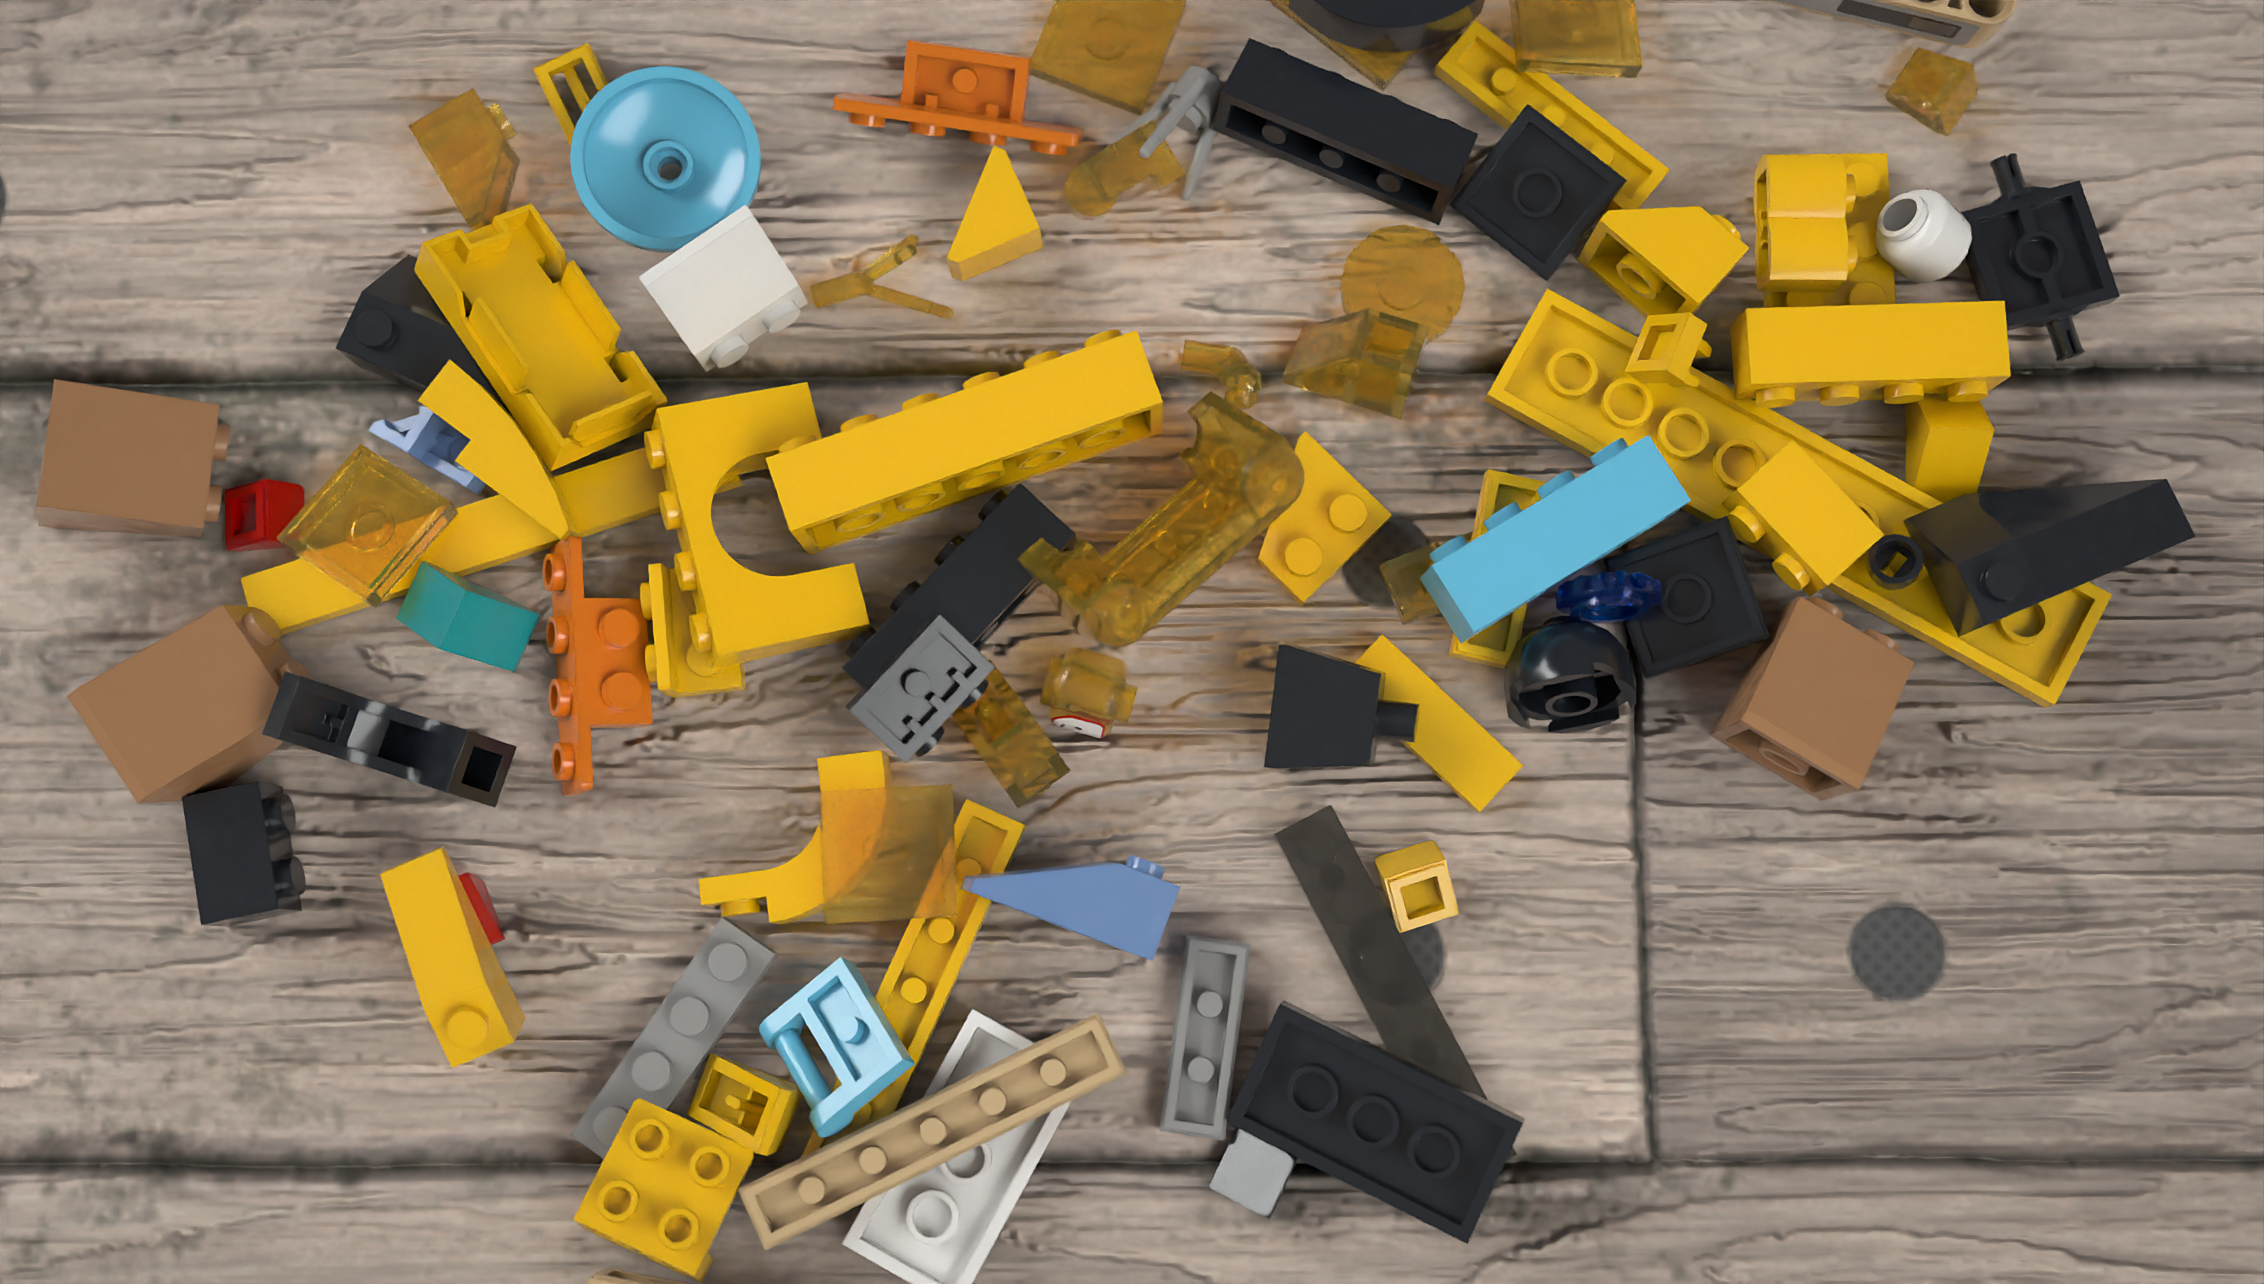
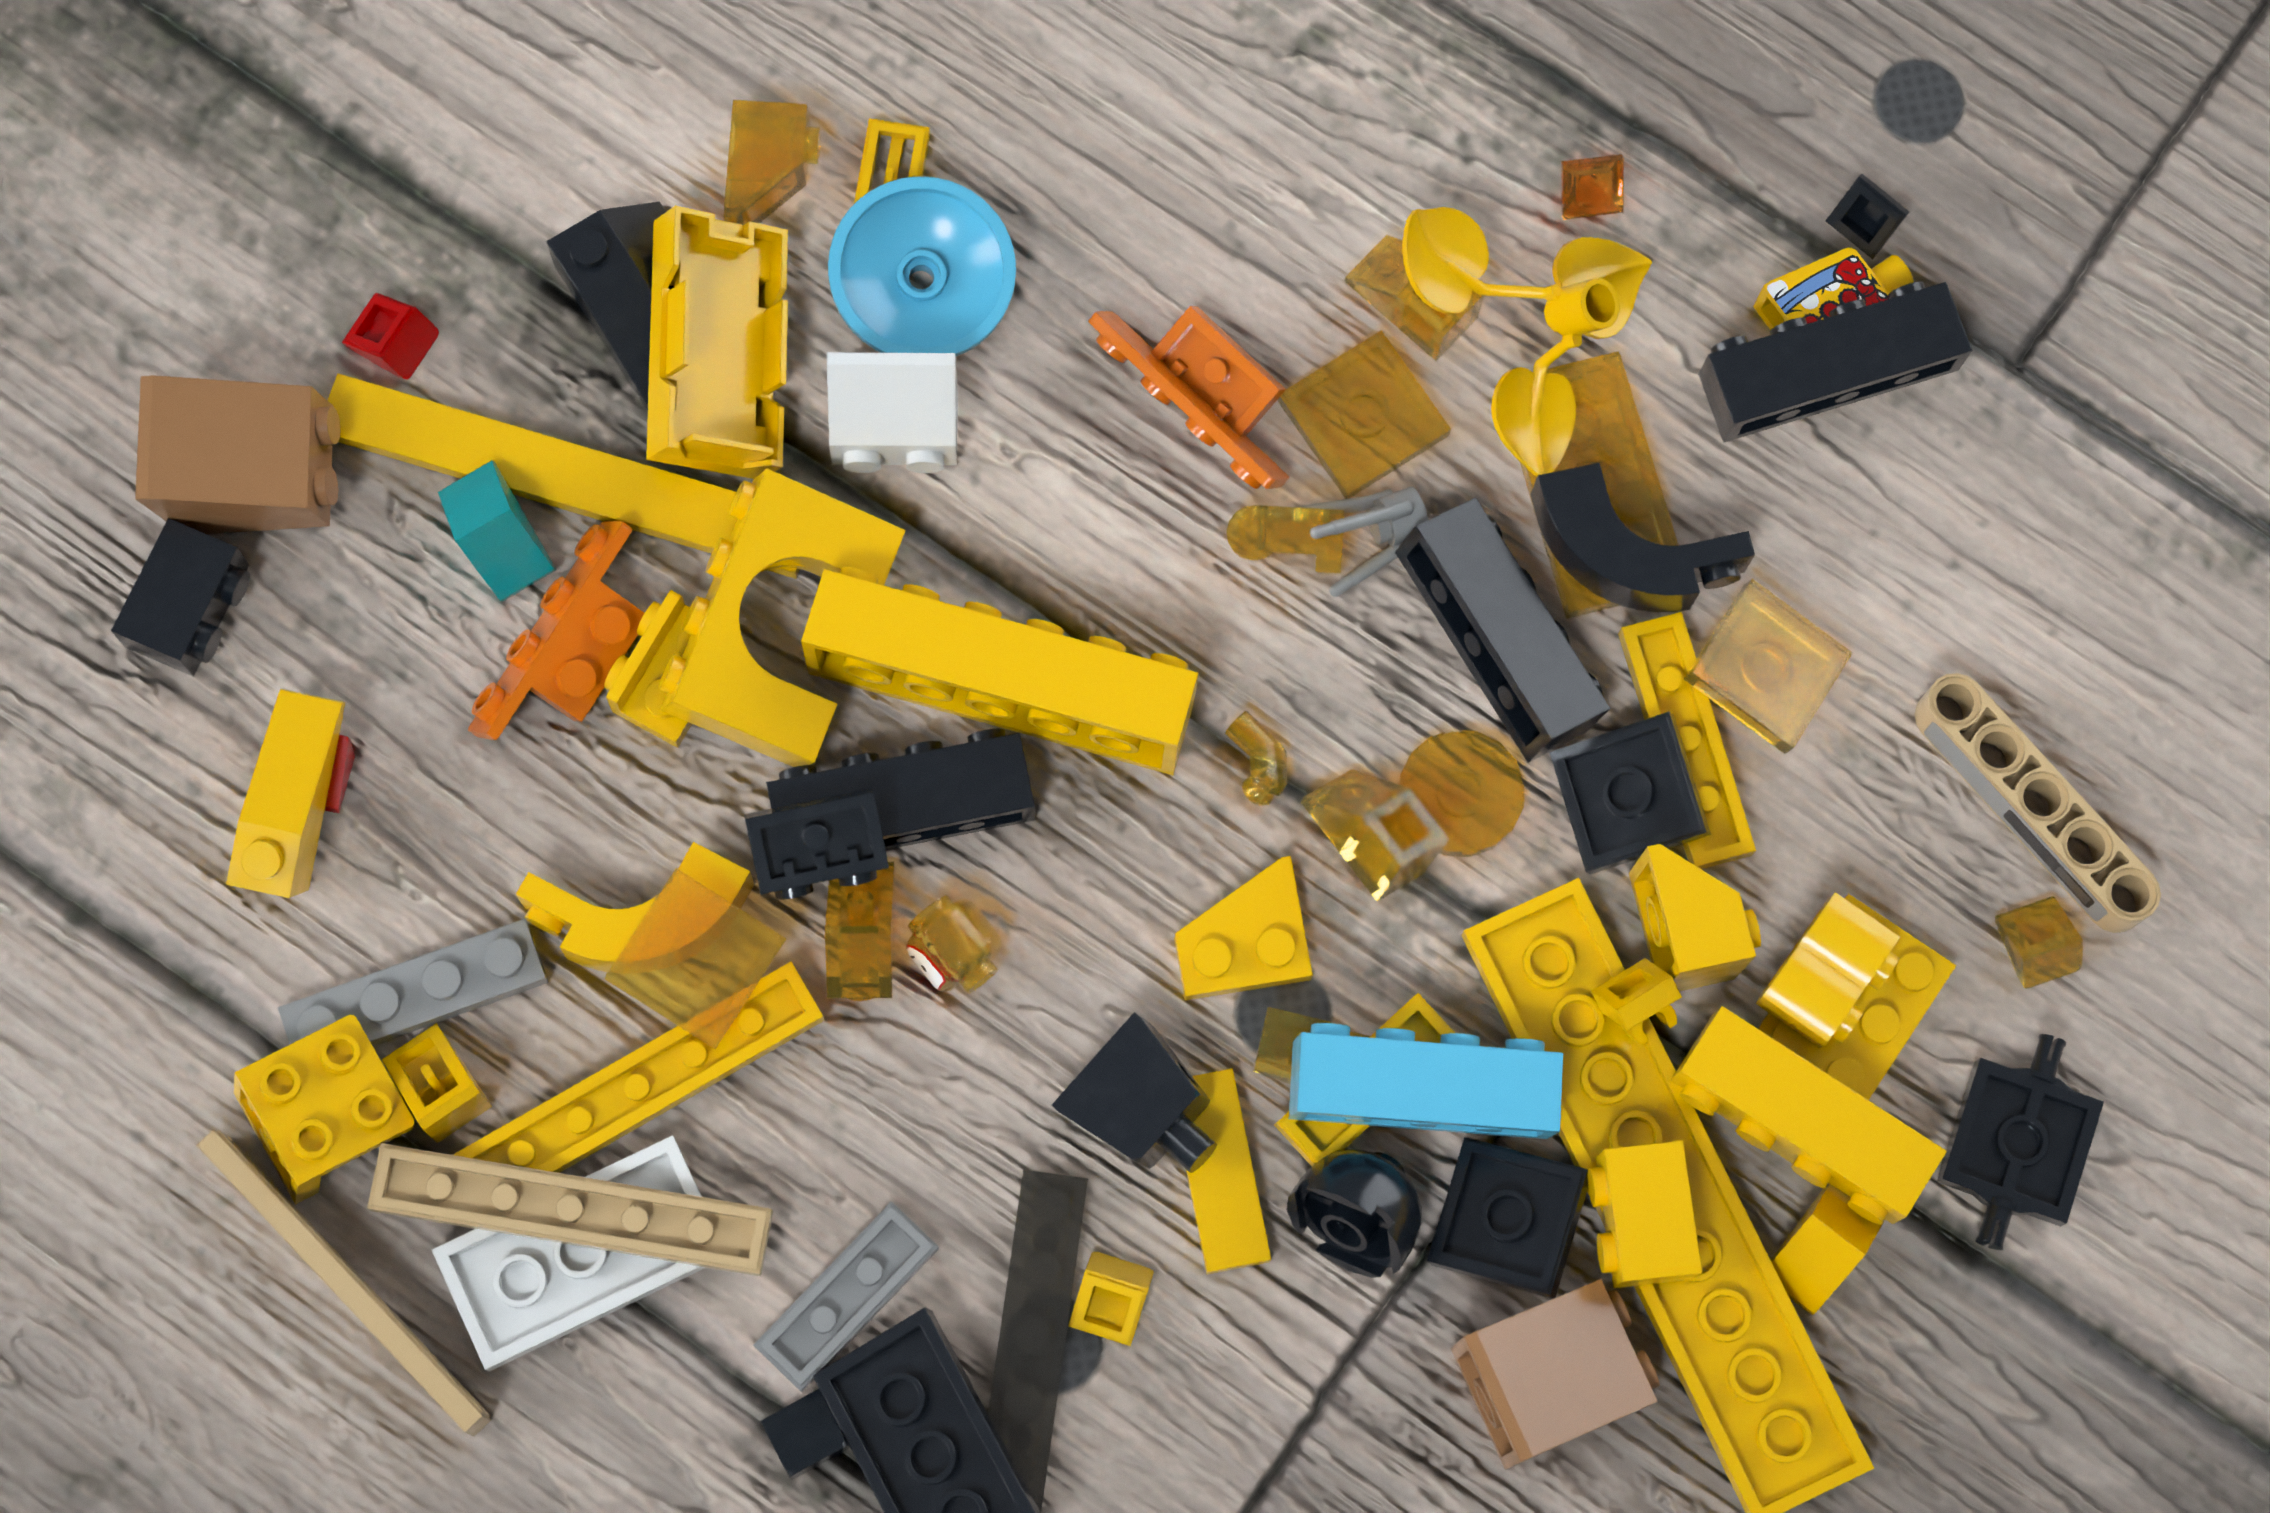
camera: 25 degrees right, 5 degrees down
(129, 462) = (318, 220): medium nougat slope -> none
(367, 525) = (469, 401): clear yellow tile -> none
(389, 739) = (364, 588): black arch -> none
(432, 443) = (580, 379): medium blue slope -> none
(498, 448) = (617, 413): yellow slope -> none
(851, 1035) = (559, 1087): medium azure plate -> none
(862, 283) = (1013, 479): clear yellow plant -> none
(996, 223) = (1156, 506): yellow slope -> none
(1099, 900) = (838, 1121): medium blue slope -> none
(1238, 489) = (1189, 863): clear yellow windscreen -> none
(1608, 597) = (1437, 1165): clear blue gear -> none
(1882, 555) = (1697, 1295): black hinge -> none
(1922, 235) = (1931, 1054): white head -> none
(2027, 545) = (1827, 1375): black wedge -> none

